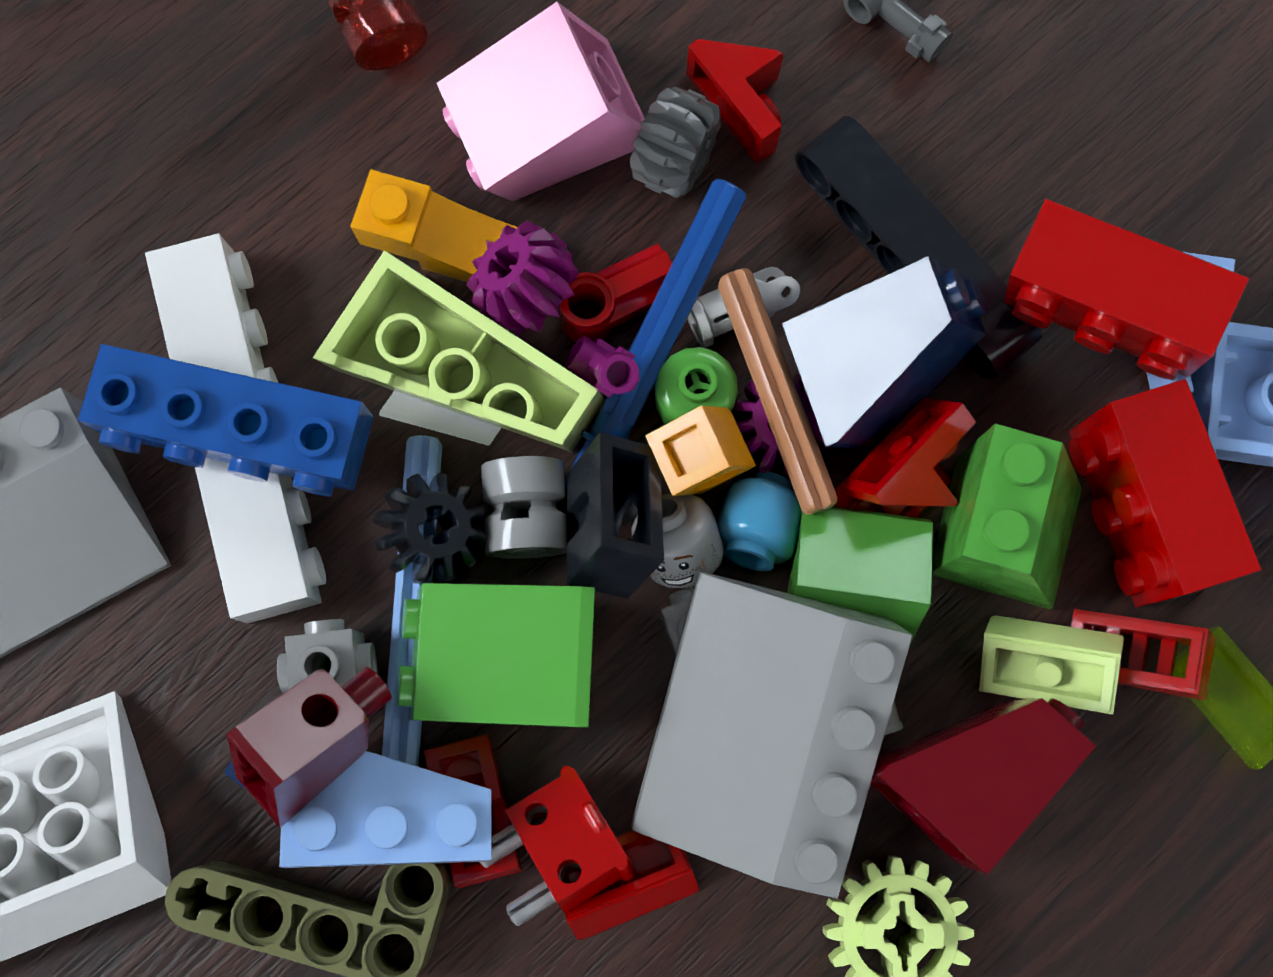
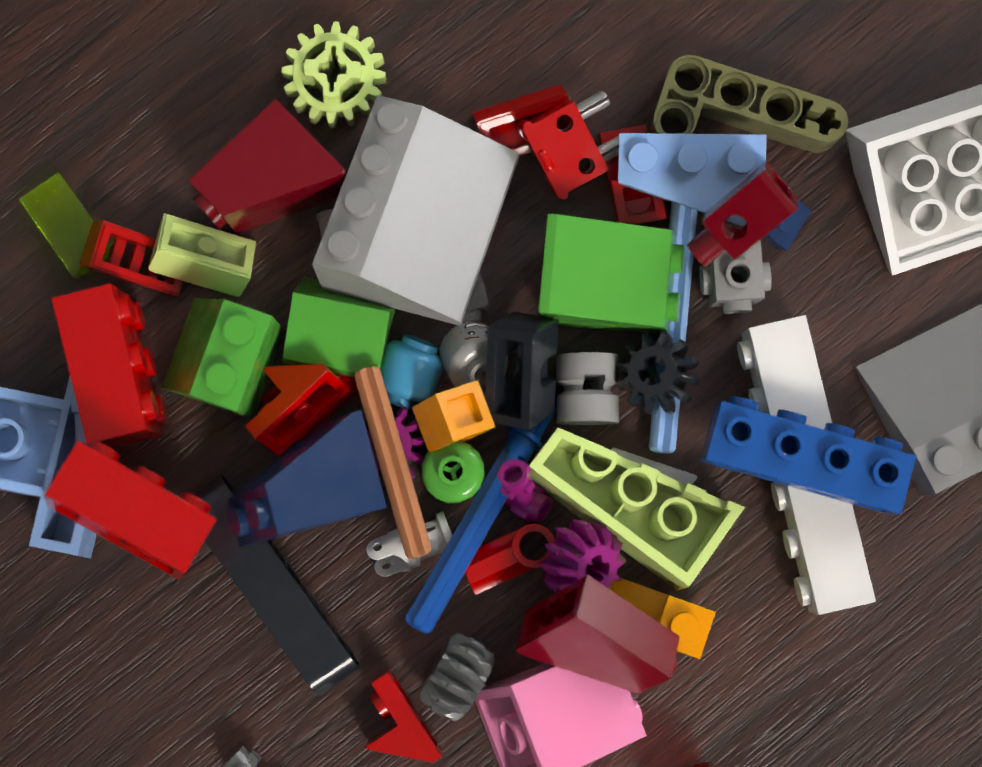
camera: 175 degrees right, 5 degrees up
(498, 176) = (599, 637): none -> dark red slope

